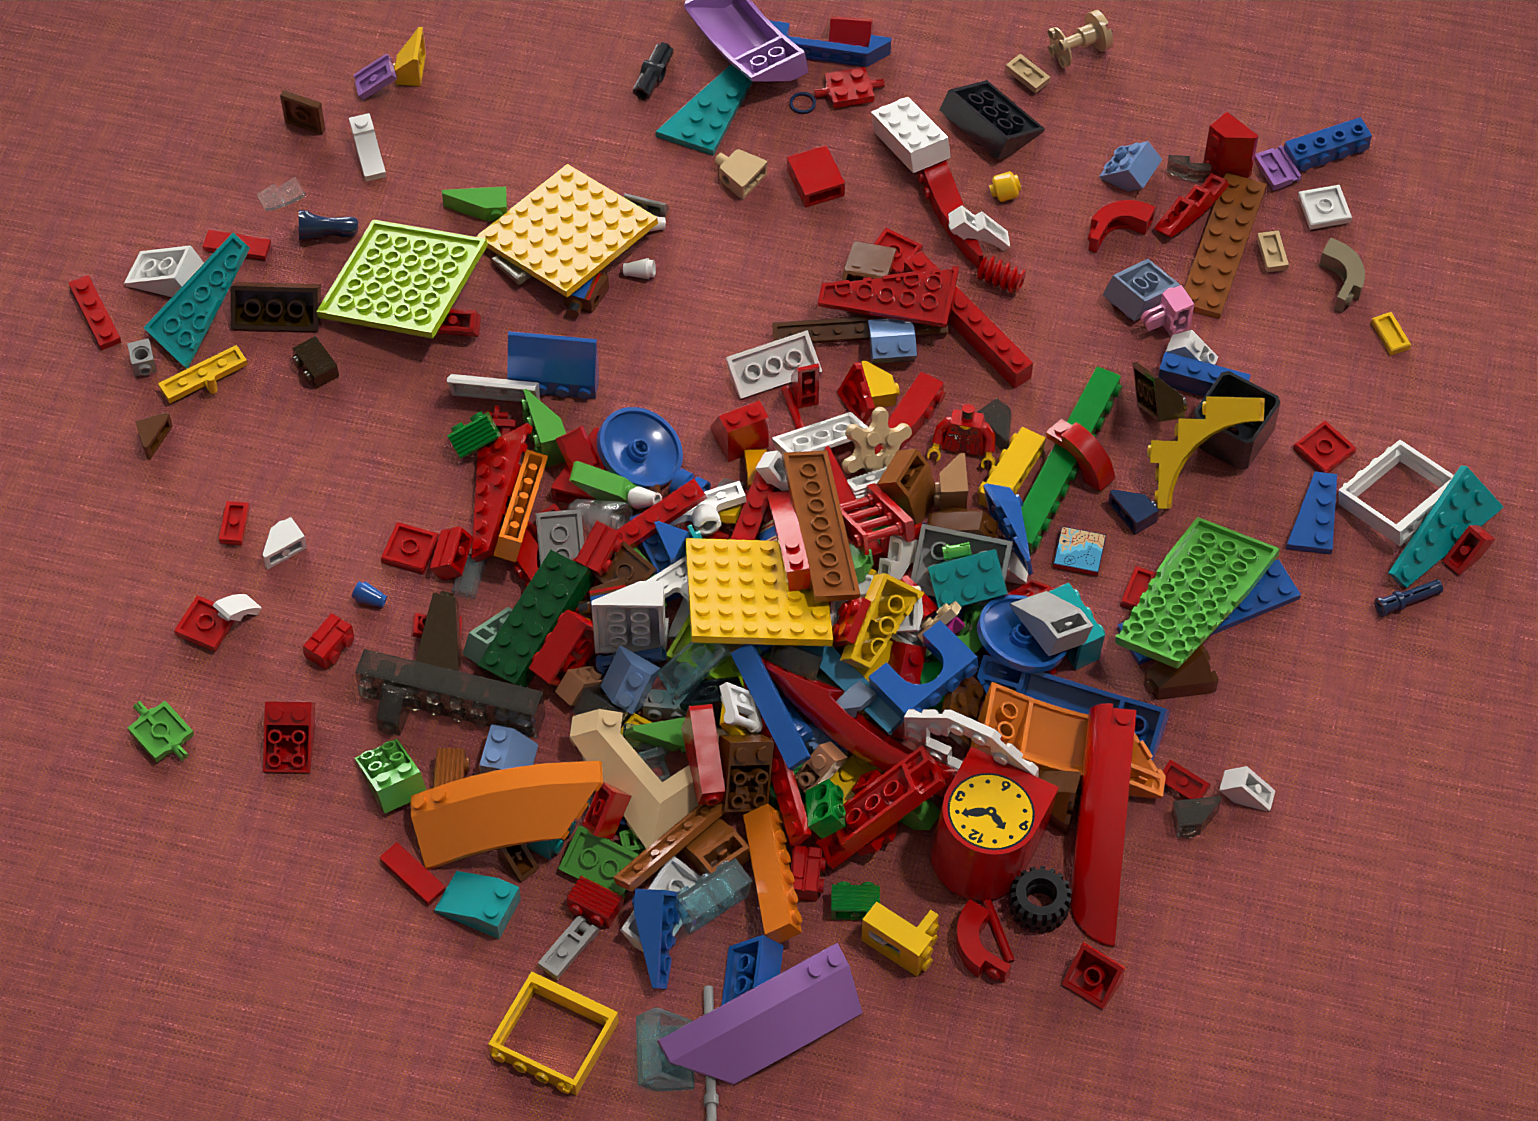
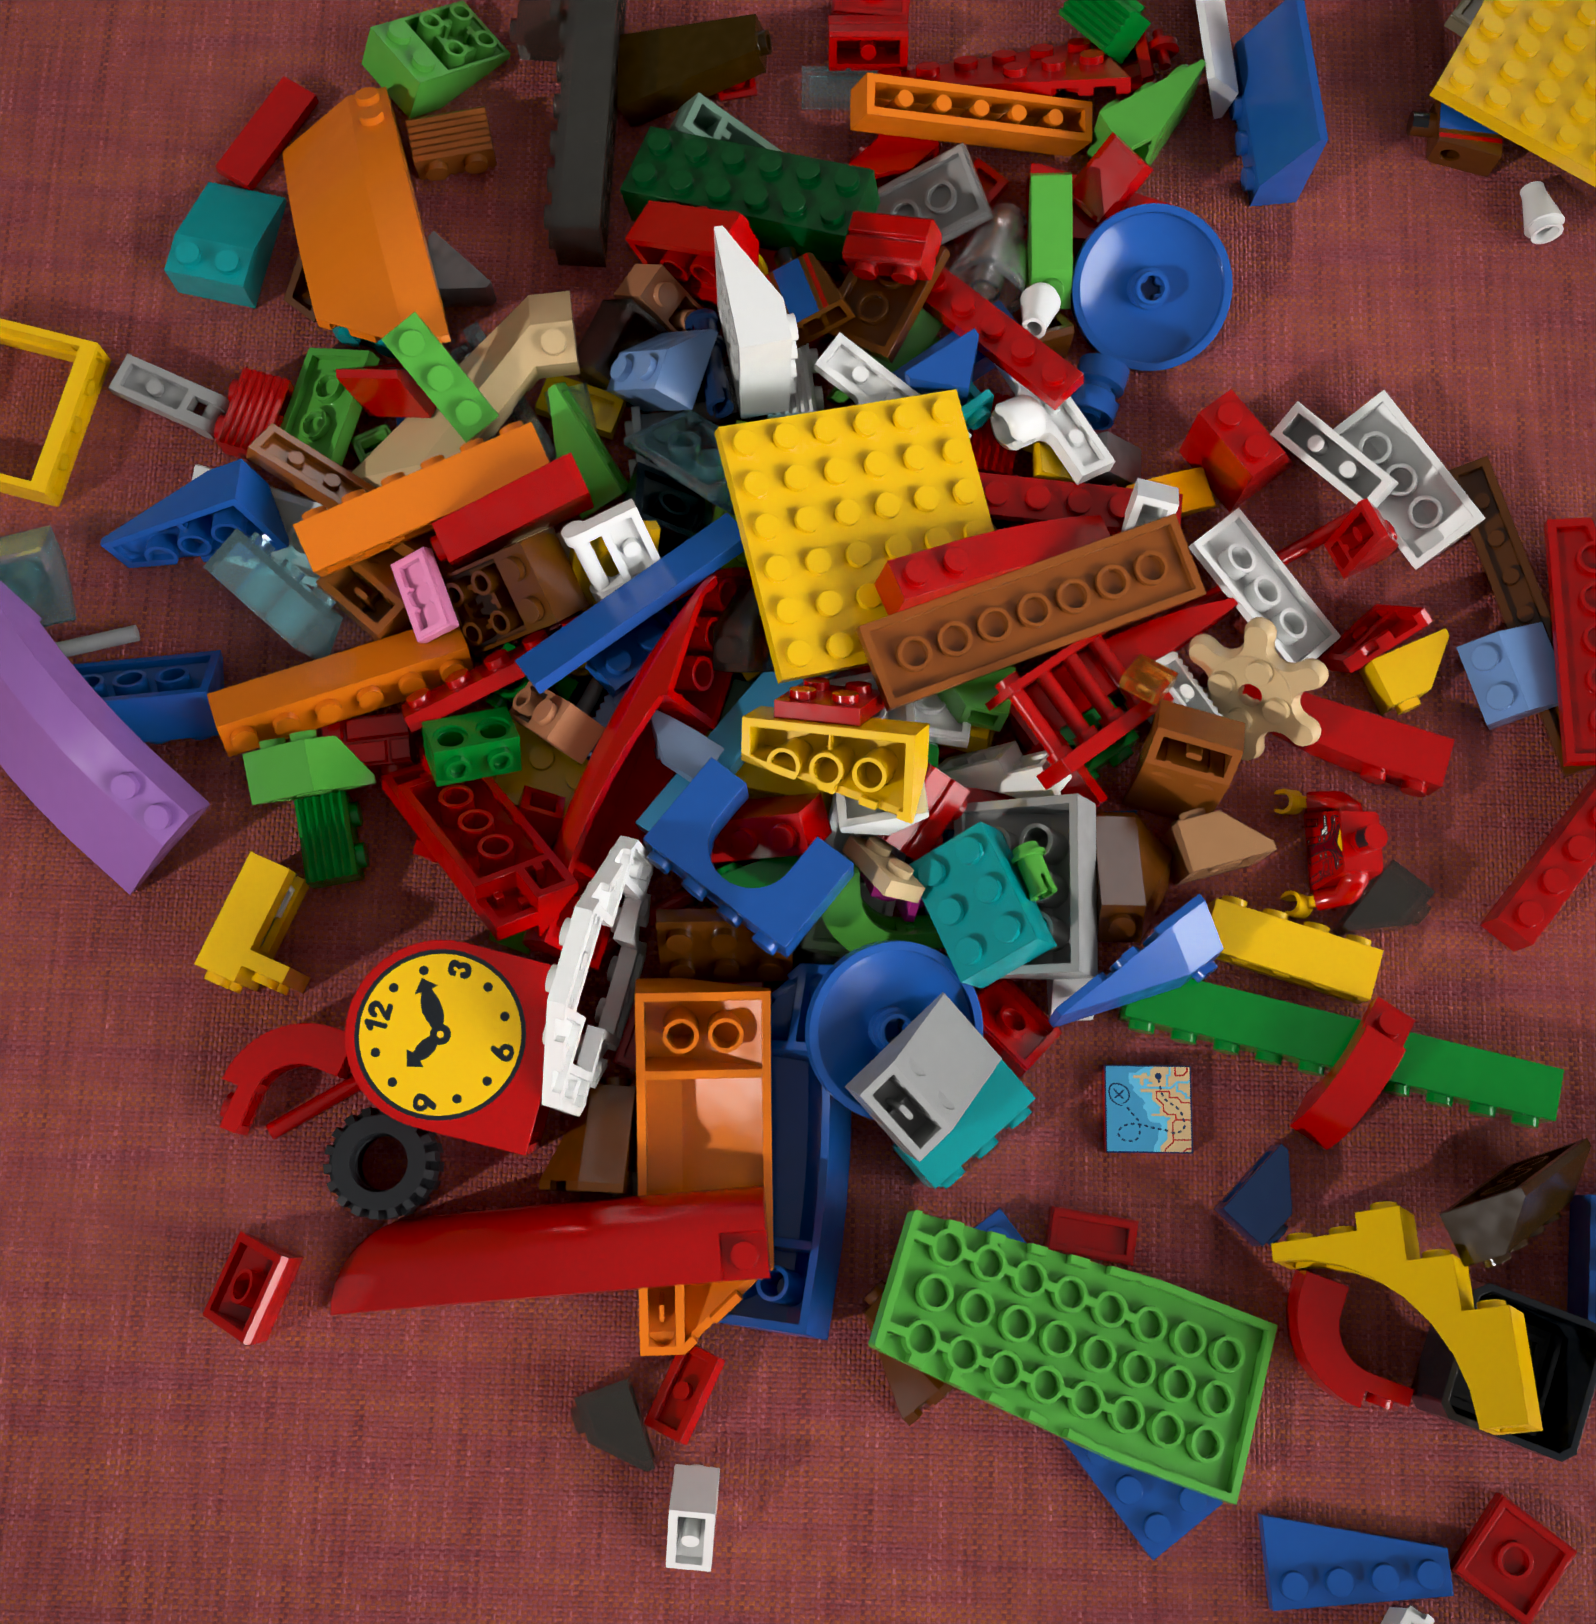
camera: 75 degrees right, 20 degrees up
(507, 749) = (502, 221): medium blue slope -> none
(621, 771) = (440, 376): none -> bright green plate
(684, 800) = (410, 503): none -> orange brick
(734, 816) = (424, 595): none -> bright pink plate
(758, 386) = (1333, 456): none -> white brick
(820, 891) = (302, 768): none -> bright green slope
(863, 489) = (1148, 679): none -> clear orange tile
(1210, 501) = (1314, 1334): none -> red arch

